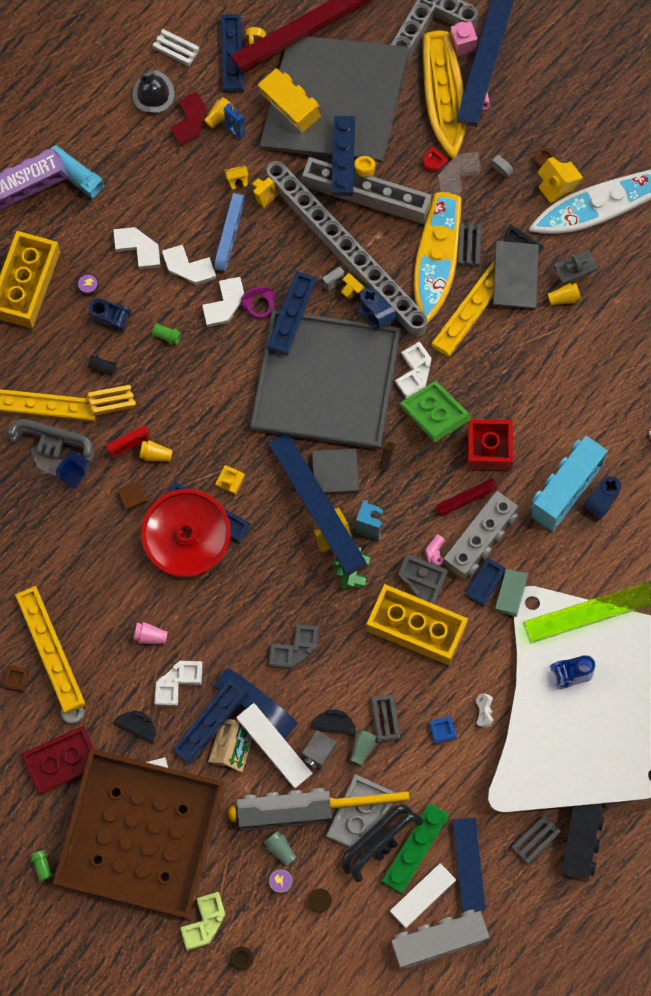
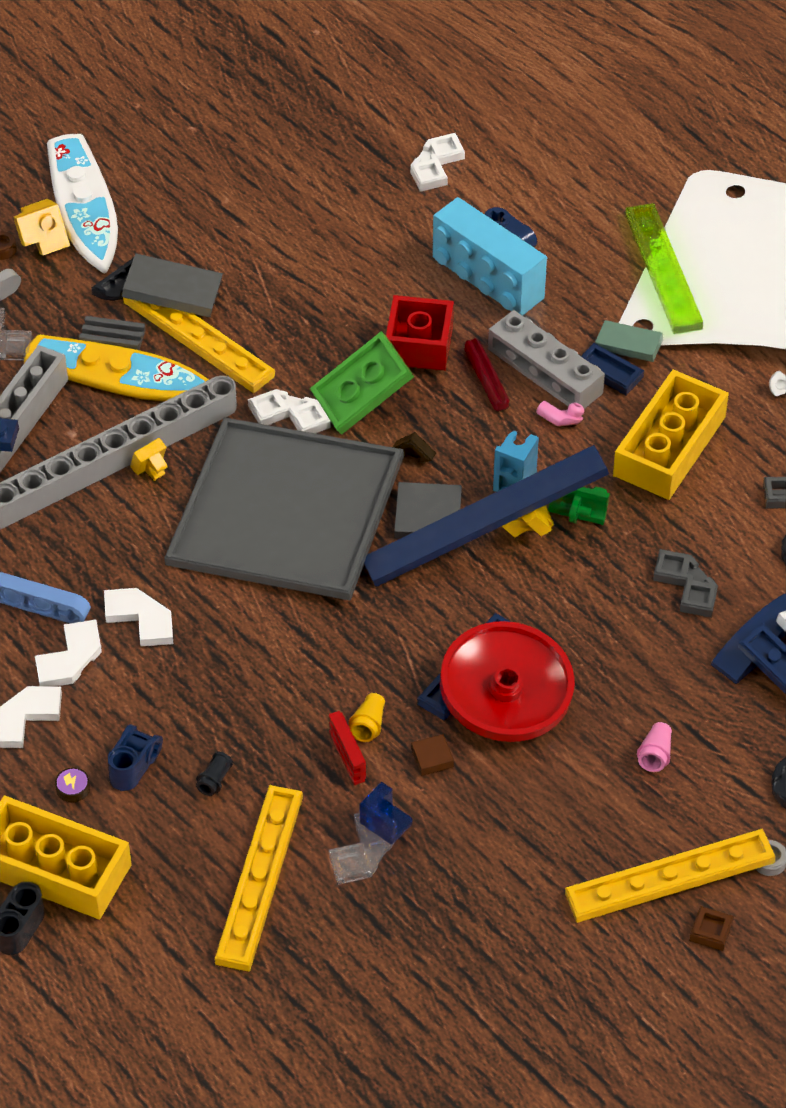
camera: 85 degrees left, 20 degrees down
(51, 438) = (329, 843): dark grey piece -> none
(110, 392) = (272, 747): yellow tile -> none
(166, 334) = (181, 683): bright green pin -> none
(181, 674) = (734, 735): white tile -> none
(230, 480) = (423, 633): yellow tile -> none
(247, 298) = (137, 560): magenta piece -> none
(292, 313) = (181, 526): dark blue plate -> none
(333, 279) = (134, 480): light grey tile -> none
(375, 309) = (193, 434): dark blue piece -> none
(423, 578) = (599, 426): dark grey wing -> none
(565, 295) = (211, 238): yellow cone -> none
(568, 672) = (750, 278): clear blue piece -> none
(575, 267) = (176, 224): dark grey hips -> none

